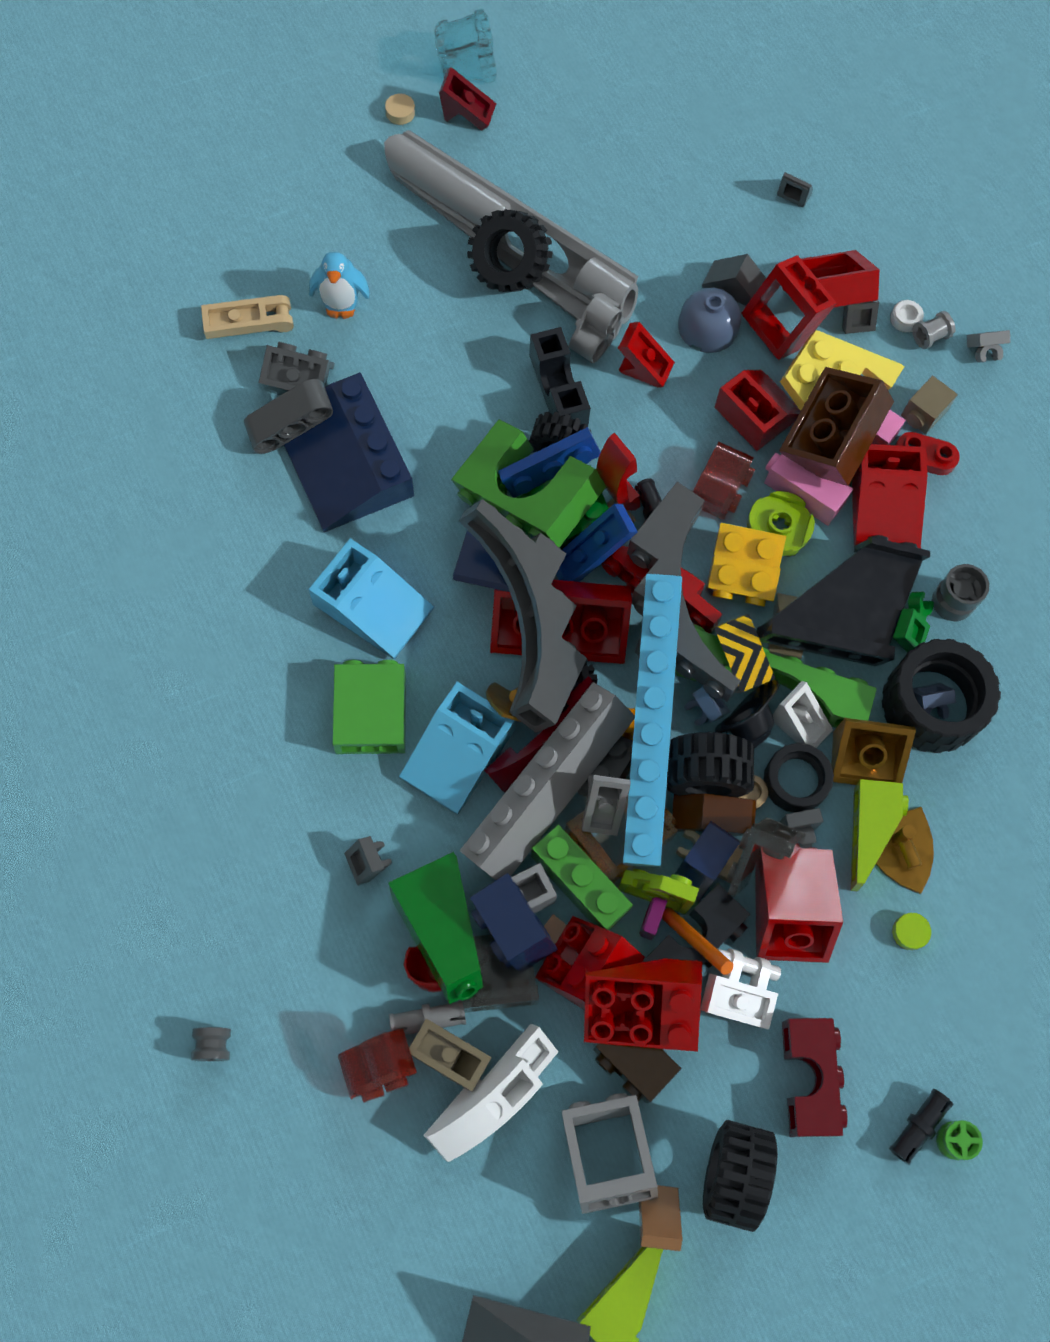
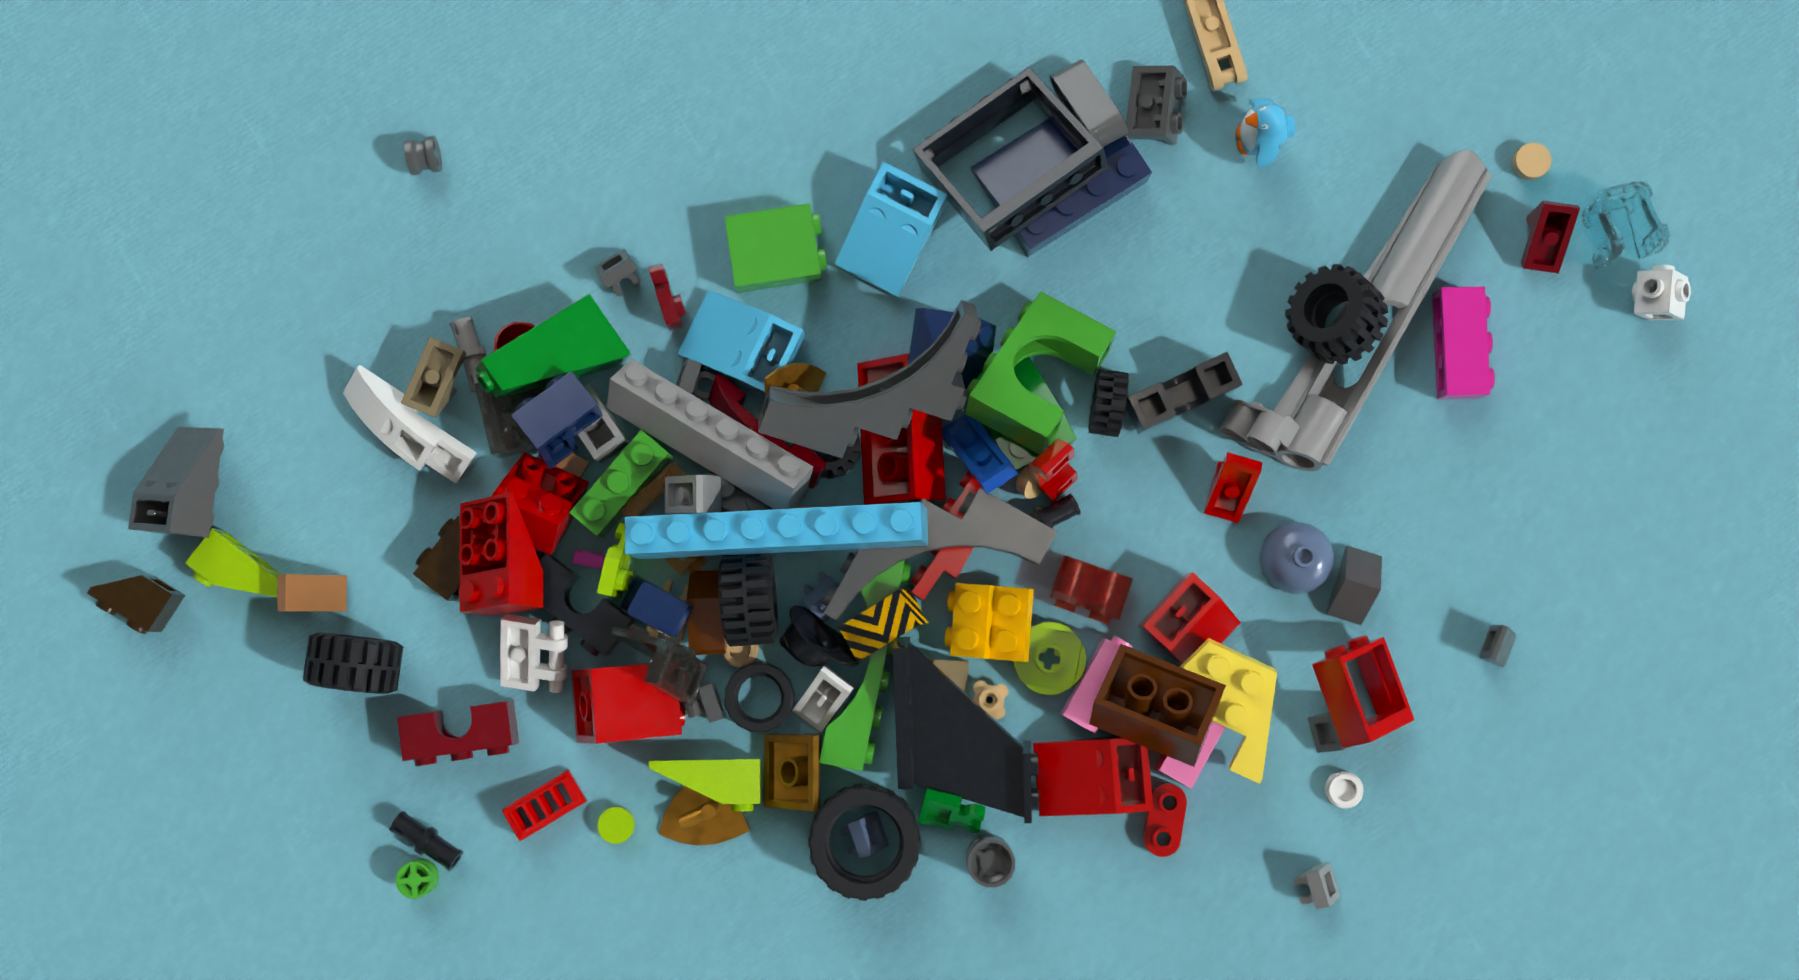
camera: 85 degrees right, 15 degrees up
(293, 439) = (1039, 195): none -> black window
(377, 1065) = (416, 312): clear red brick -> none
(409, 812) = (671, 306): none -> dark red plate
(481, 801) = (690, 376): none -> dark grey tile
(535, 35) = (1661, 293): none -> white brick
(544, 464) = (1068, 394): blue plate -> none
(545, 175) = (1462, 343): none -> dark pink brick
(616, 1191) = (400, 513): light grey window -> none
(697, 941) = (564, 605): orange bar -> none
(809, 570) = (997, 693): none -> tan plate
(814, 303) = (1323, 634): red window -> none
(885, 1018) = (517, 823): none -> red slope
(928, 405) = (1222, 817): dark tan brick -> none
(932, 330) = (1325, 820): light grey bush -> none

